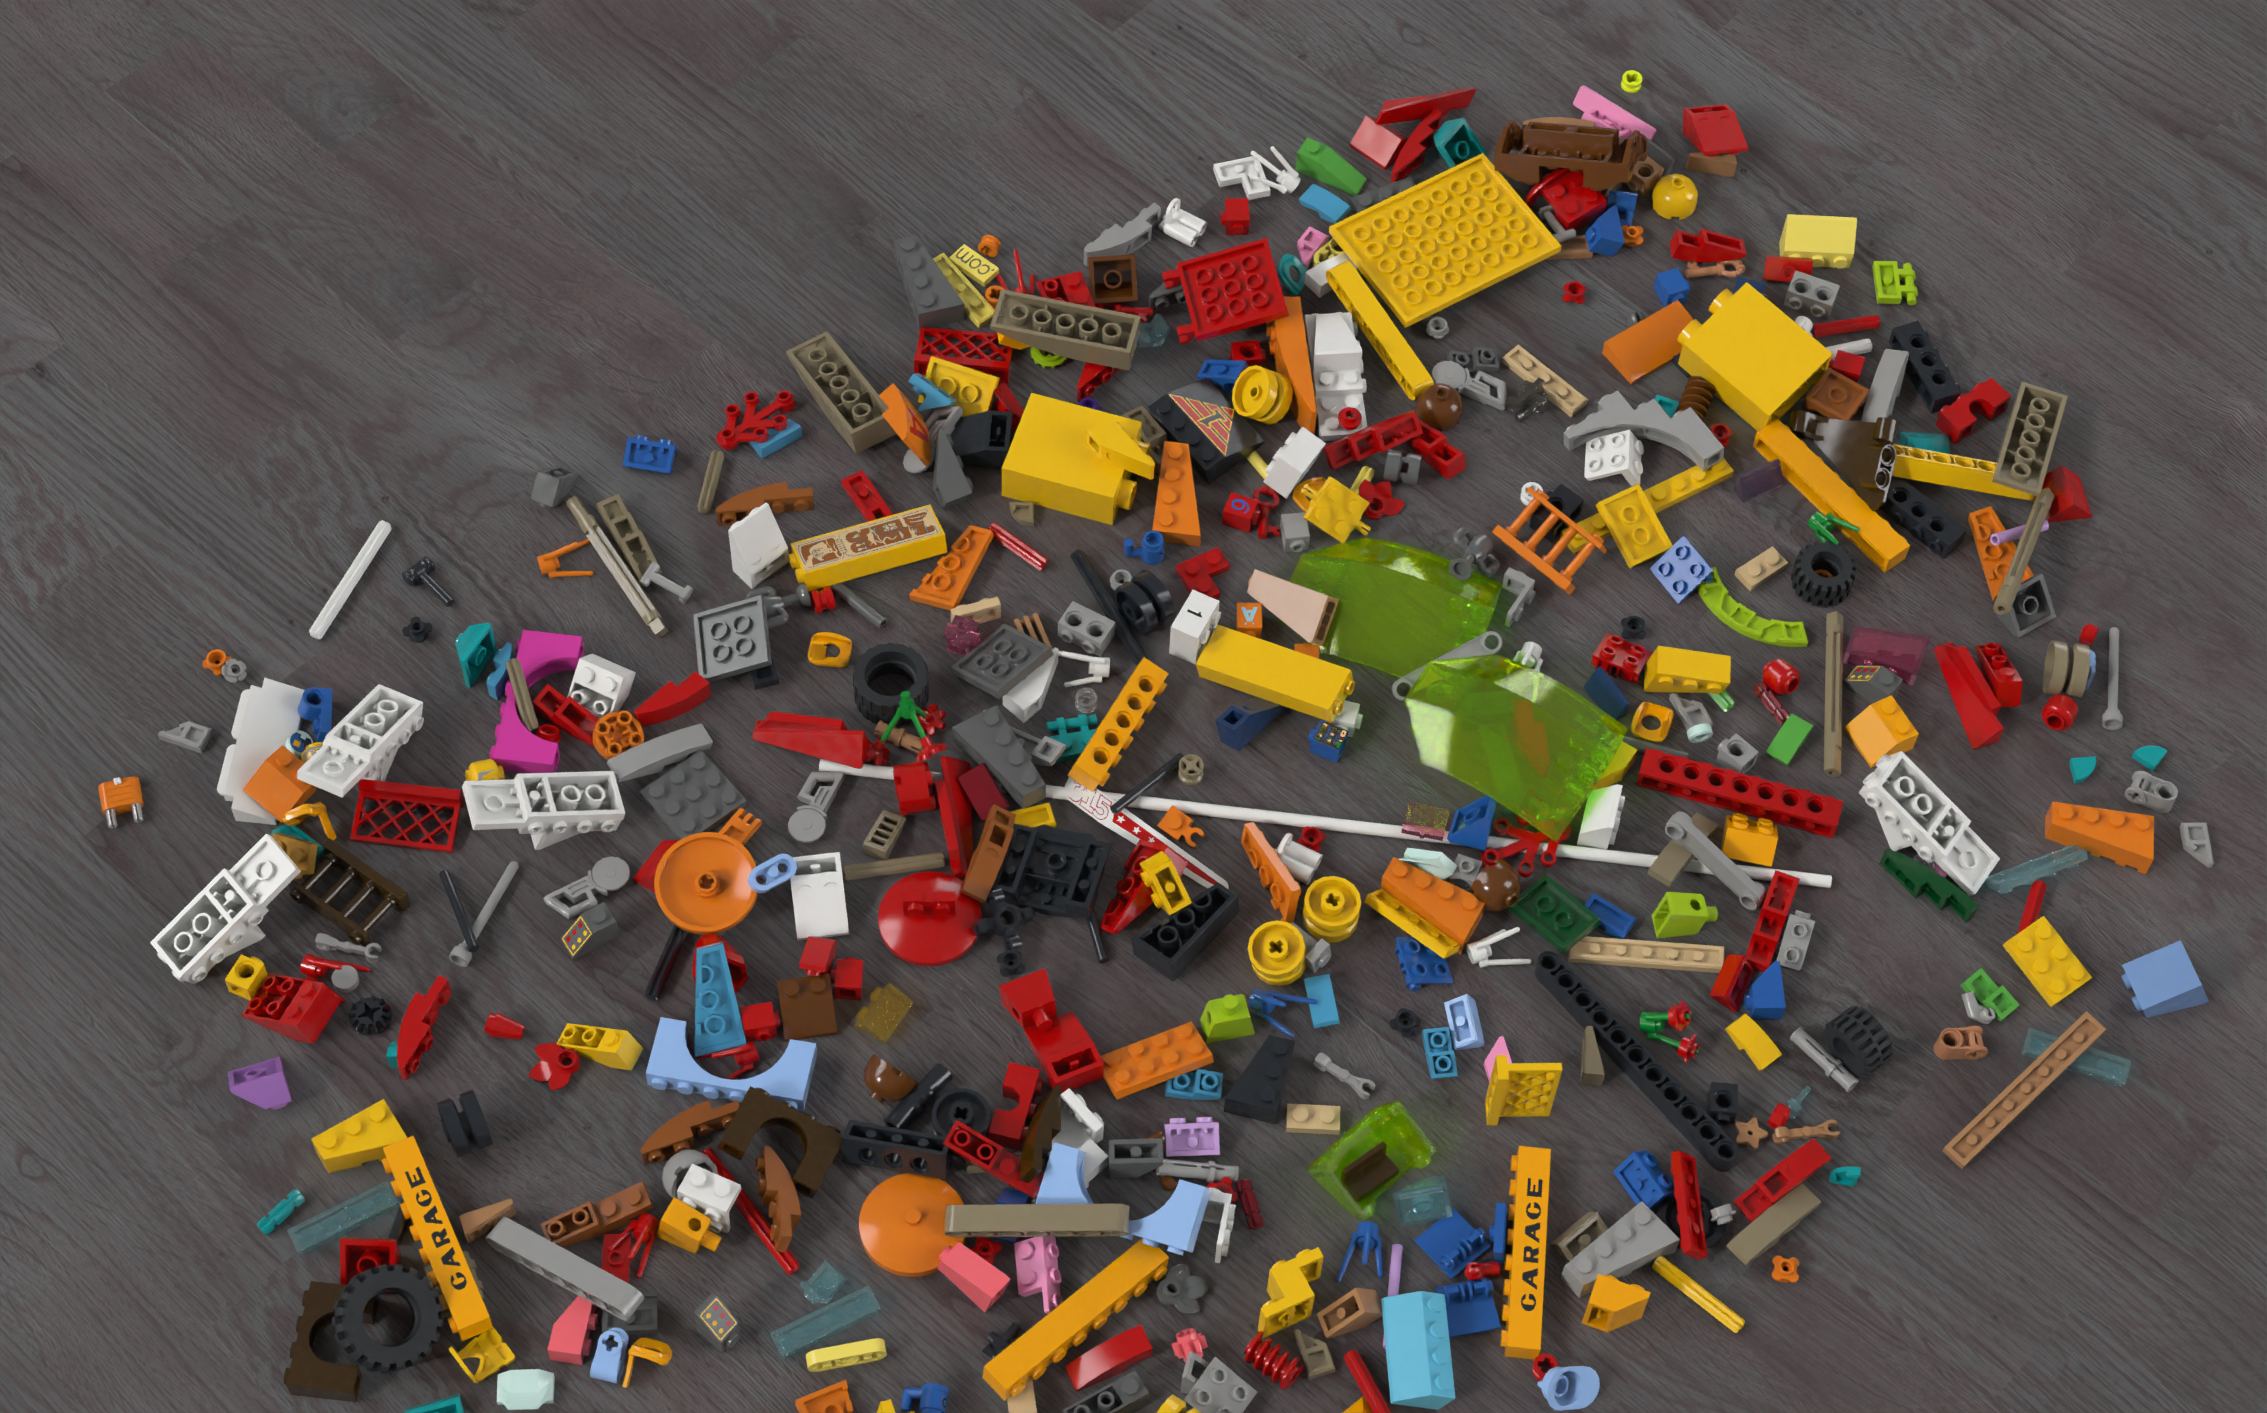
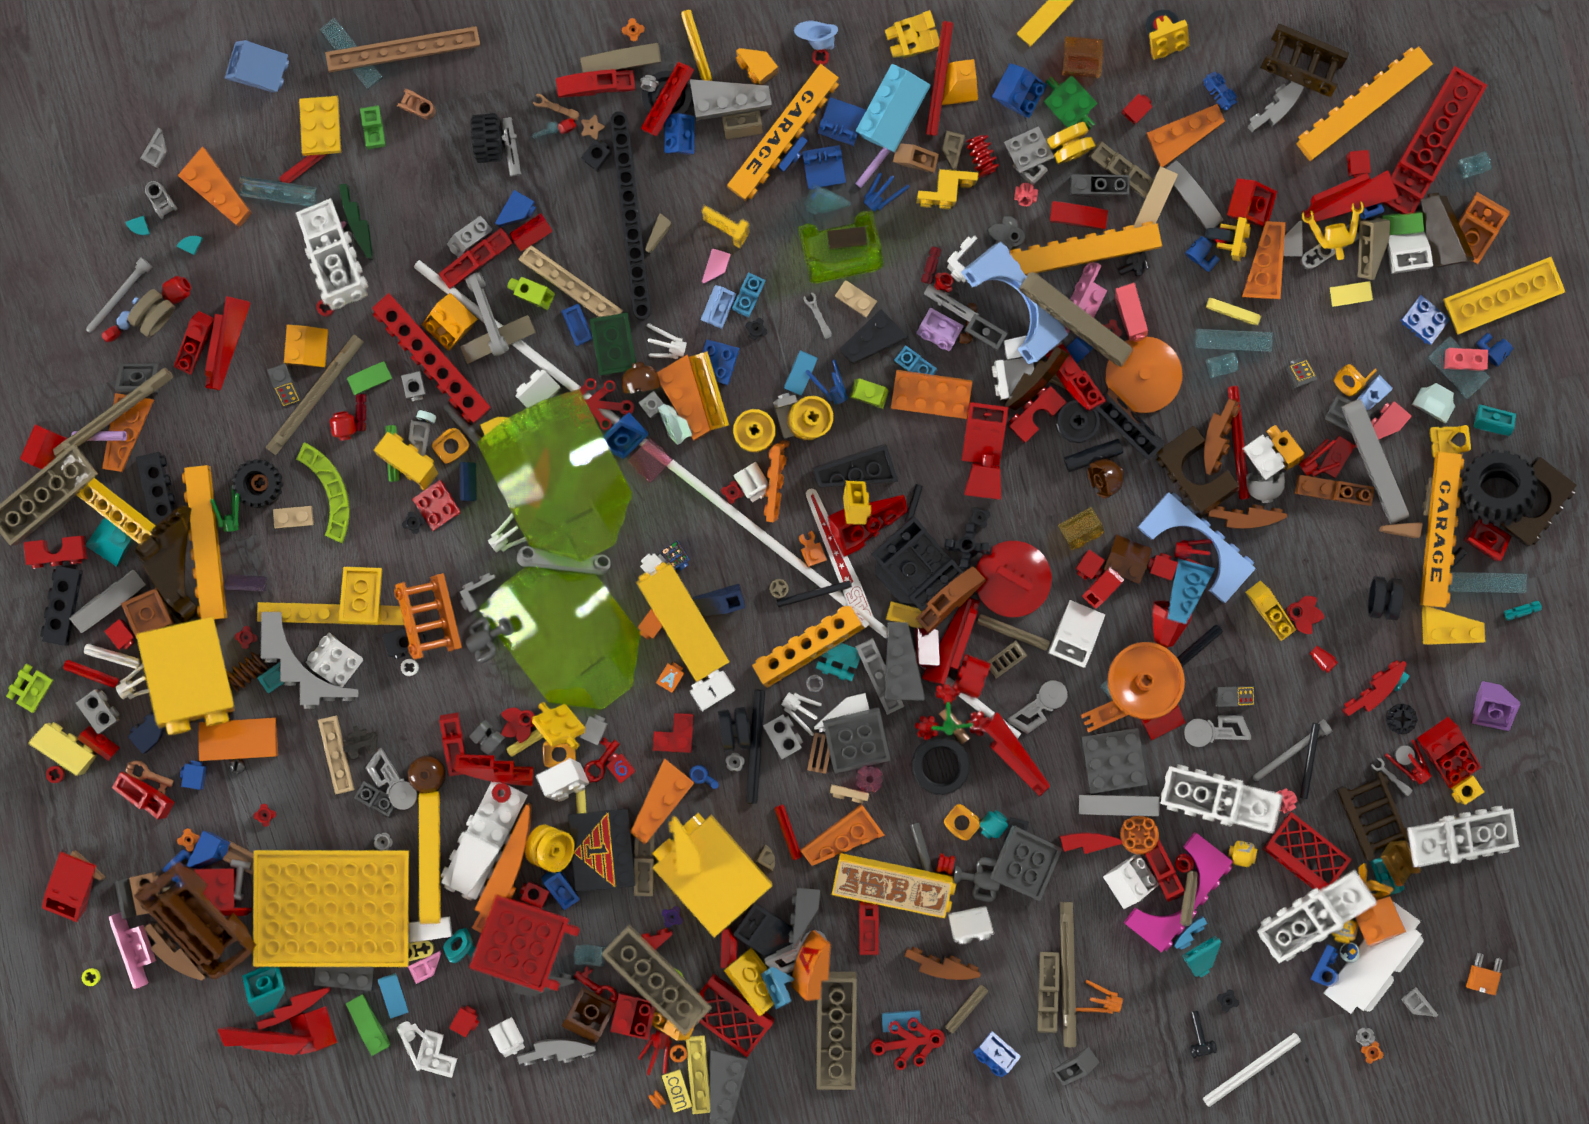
camera: 145 degrees left, 30 degrees up
(465, 854) = (1288, 800): none -> coral gear
(652, 575) = (1044, 941): light grey piece -> none
(770, 874) = (1103, 656): light blue plate -> none
(793, 662) = (993, 824): none -> teal head
(1297, 606) = (634, 667): slope -> none
(1477, 1271) = (819, 139): red arm -> none
(1674, 196) = (134, 854): yellow cylinder -> none
(1679, 1017) = (589, 220): plant -> none
(1682, 569) = (351, 544): hinge -> none
(1754, 1041) = (546, 185): yellow slope -> none
(1845, 1176) = (553, 64): teal tile -> none
(1894, 650) = (259, 400): clear pink wedge -> none
(1975, 1011) = (389, 122): light grey arm -> none

